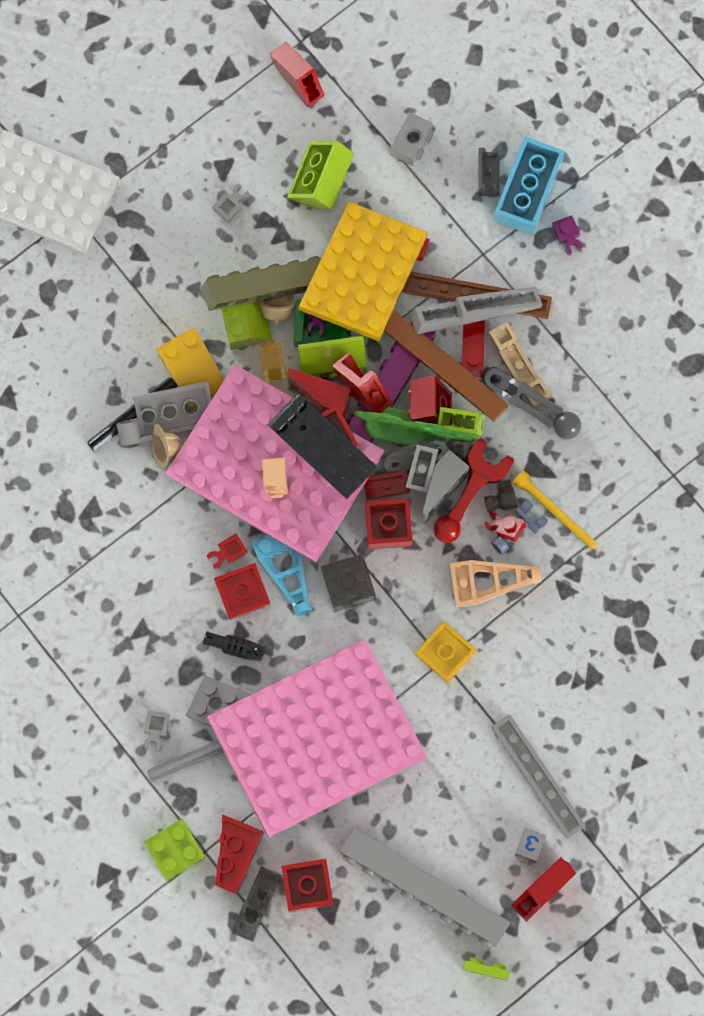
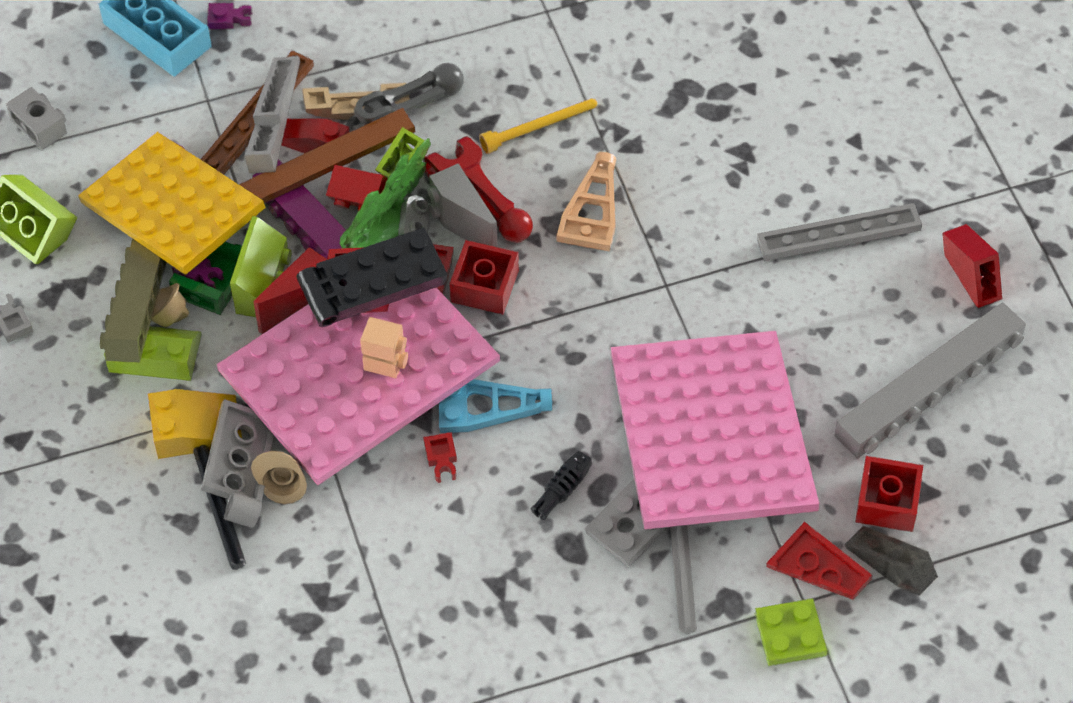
camera: 70 degrees left, 20 degrees down
(156, 726) = (629, 600): light grey plate -> none
(242, 591) = (497, 455): red plate -> none
(272, 361) = (230, 326): clear yellow piece -> none
(348, 583) = (536, 341): clear smoke brick -> none
(364, 388) = (320, 231): red panel -> none
(422, 468) = (437, 214): light grey brick -> none
(445, 652) = (658, 277): yellow tile -> none
(488, 173) = (116, 64): dark grey hinge -> none
(496, 971) = (1052, 342): lime plate -> none
(501, 544) = (555, 183): sand blue bar -> none
(504, 499) = (504, 162): clear smoke piece -> none
(508, 527) = (539, 167): plate -> none
(530, 846) = (917, 262): light grey brick -> none

